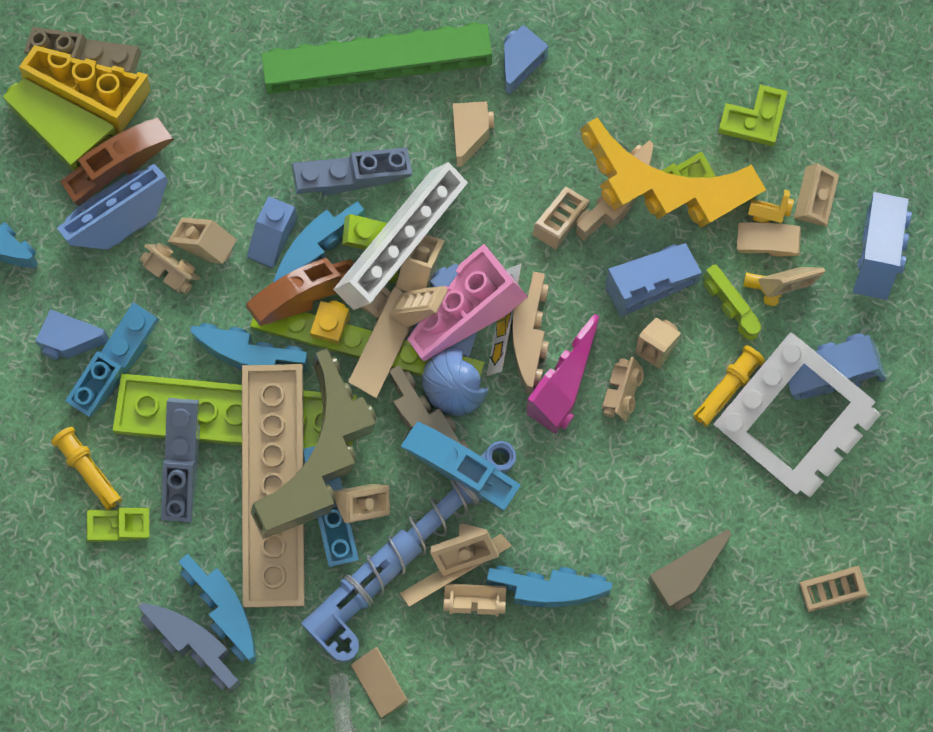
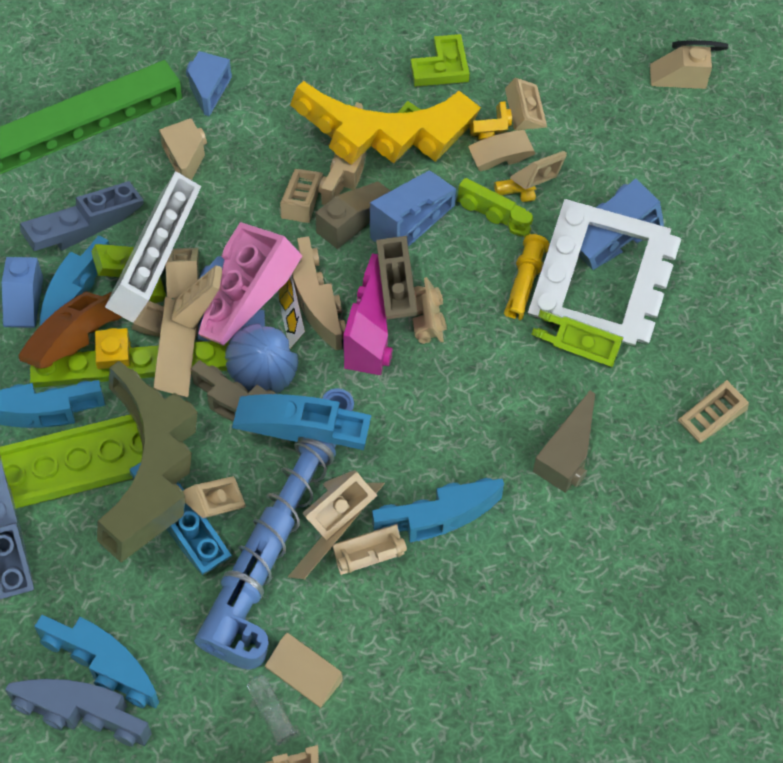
camera: 25 degrees left, 15 degrees down
(269, 460) = (95, 478): tan plate -> none
(598, 255) = (347, 213): none -> dark tan slope
(605, 350) = (396, 277): none -> dark tan slope
(657, 342) = (442, 261): tan slope -> none
(747, 469) = (581, 338): none -> lime hinge
(882, 245) = (607, 119): wedge -> none

